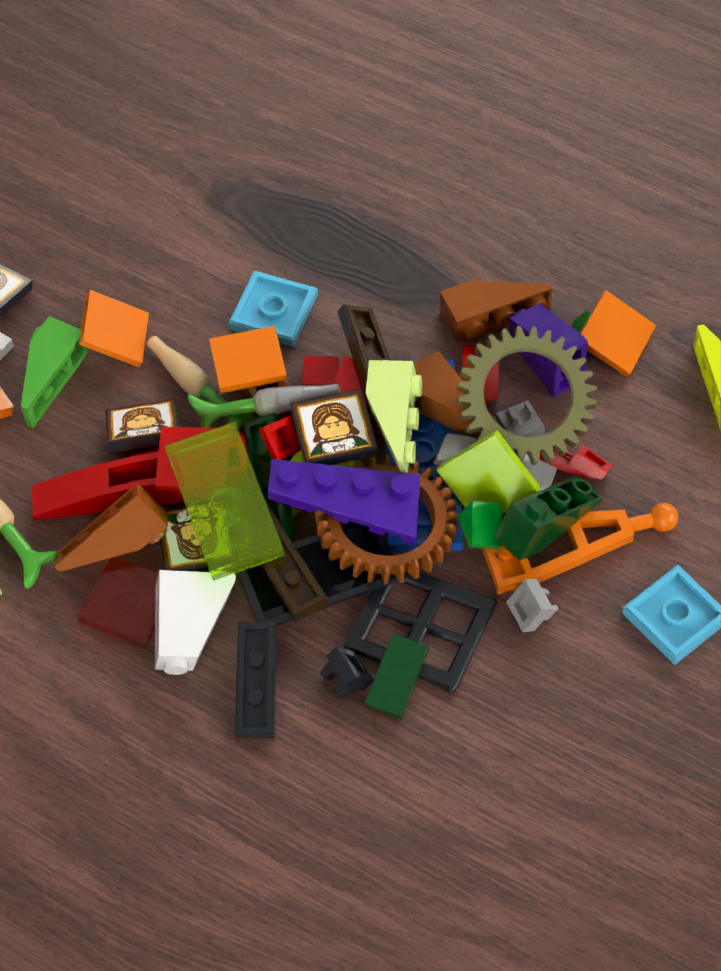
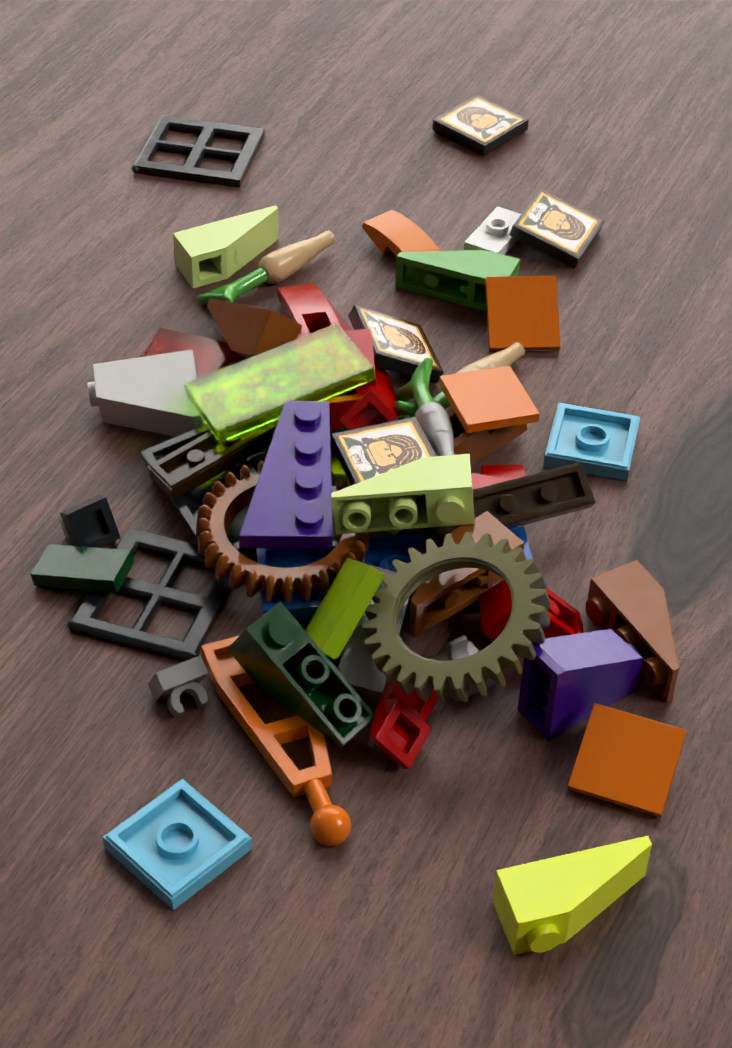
camera: 80 degrees right, 15 degrees down
(256, 680) = (79, 455): black tile -> none
(480, 524) = (263, 600): green slope -> none

